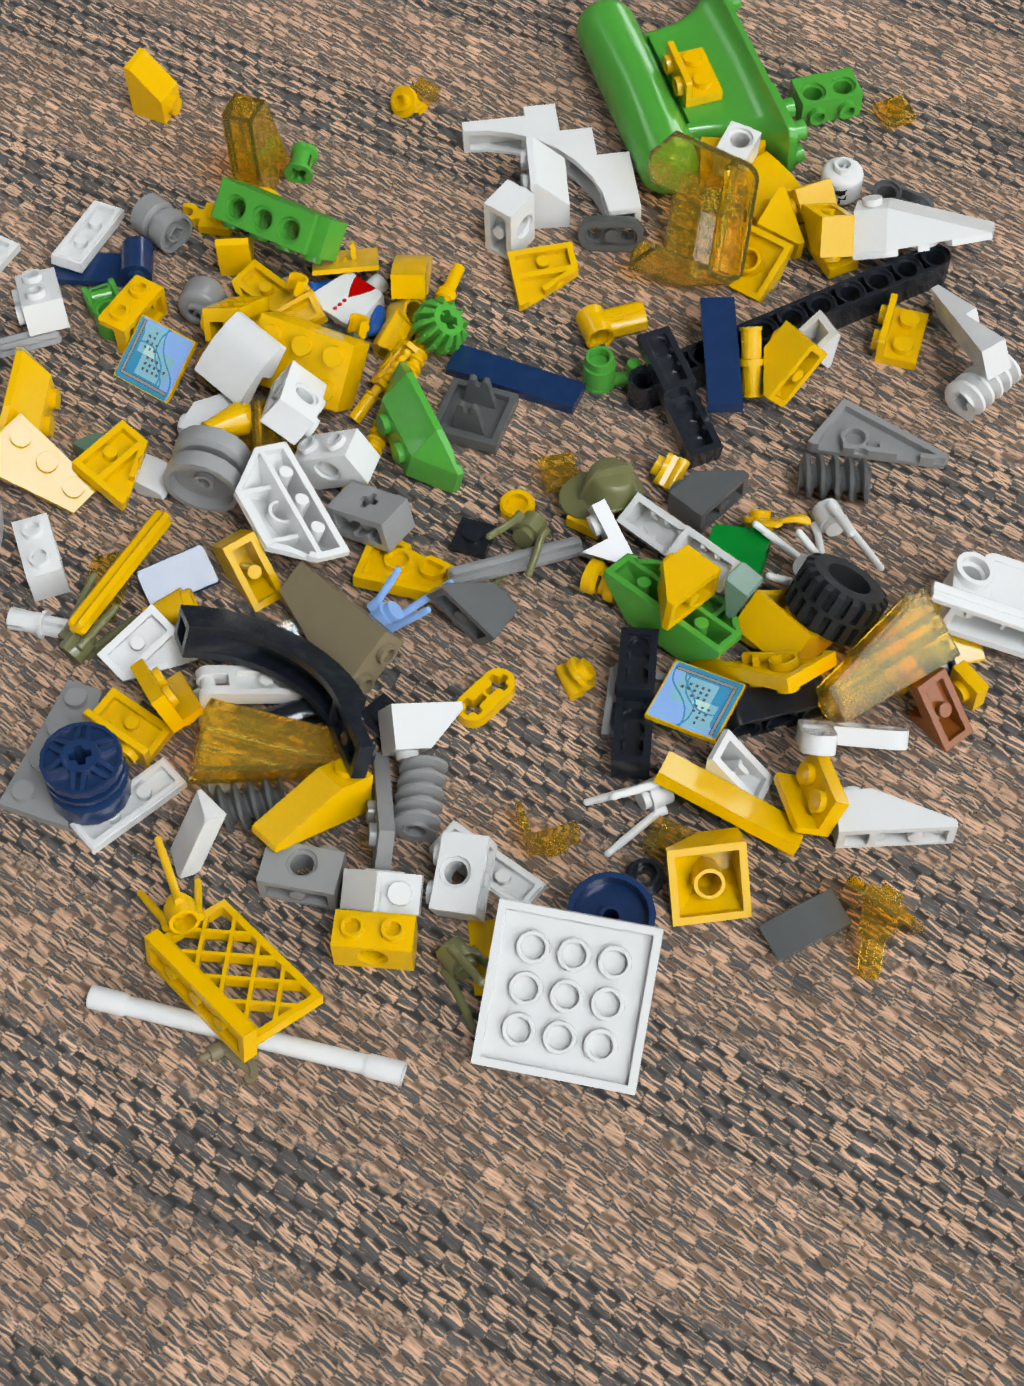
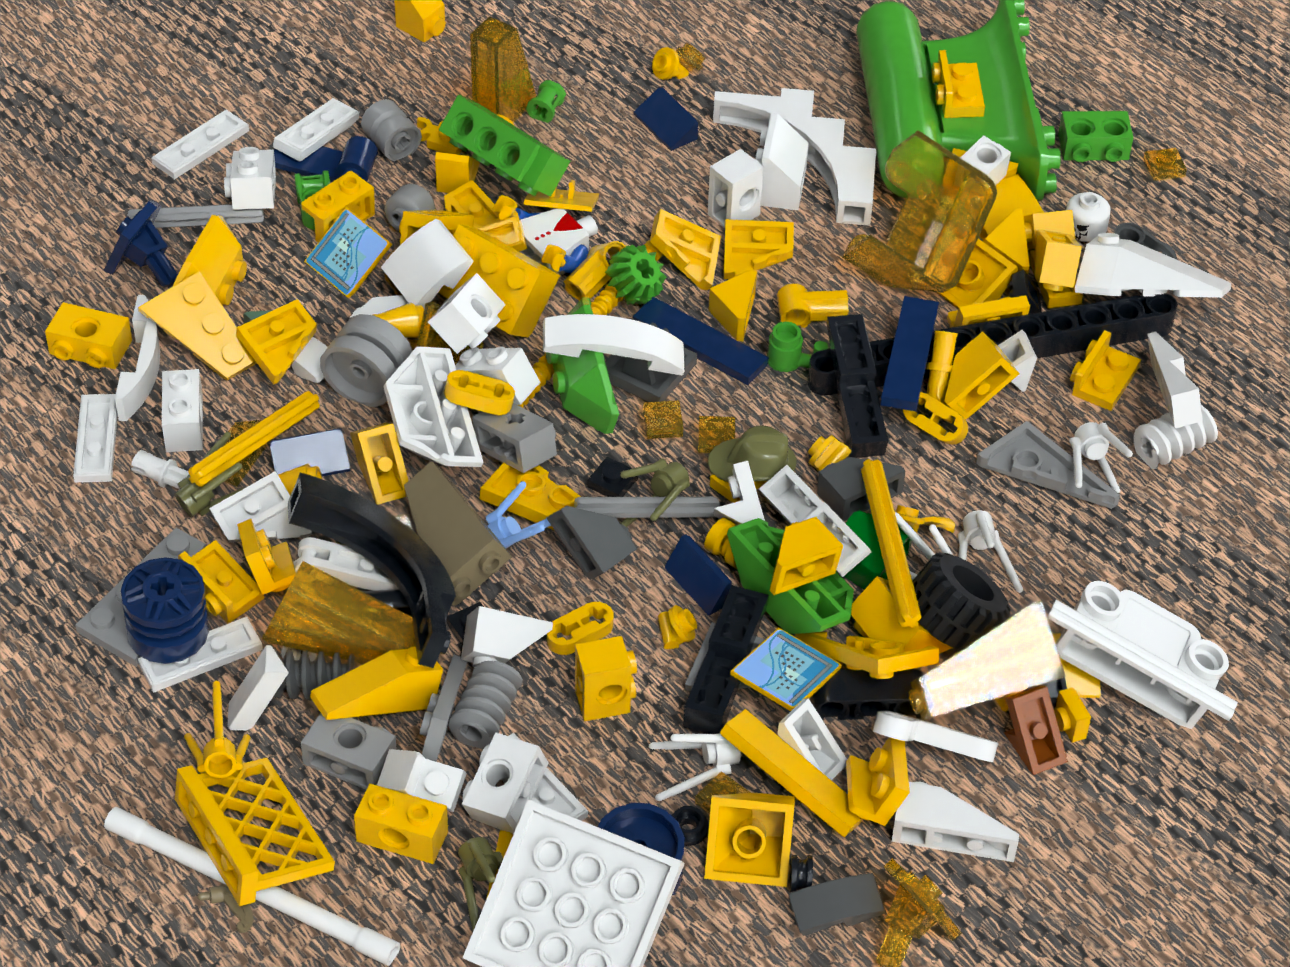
camera: 10 degrees right, 10 degrees down
(328, 481) = (479, 392): none -> yellow beam
(382, 378) = (592, 290): yellow piece -> none
(411, 276) = (621, 223): yellow slope -> none
(421, 159) = (667, 119): none -> dark blue slope
(443, 399) = (614, 336): none -> white slope
(478, 286) = (687, 247): none -> yellow wing
(504, 467) = (663, 419): none -> clear yellow plate
(516, 500) = (669, 451): yellow tile -> none
(527, 748) = (604, 678): none -> yellow brick
(536, 335) = (733, 301): none -> yellow slope
(548, 841) = (603, 770): clear yellow bracket -> none
(583, 620) = (698, 575): none -> dark blue slope
(610, 235) = (837, 225): dark grey plate -> none
(740, 587) = (859, 571): sand green slope -> none
(754, 421) = (931, 425): none -> yellow beam
(761, 554) = (891, 544): none -> yellow axle
(764, 902) = (801, 872): none -> black bush
(778, 297) = (989, 311): none -> yellow bracket
(806, 270) = (1024, 286): none -> black plate
(834, 477) = (993, 493): dark grey piece -> none
(909, 407) = (1093, 443): none -> white plant

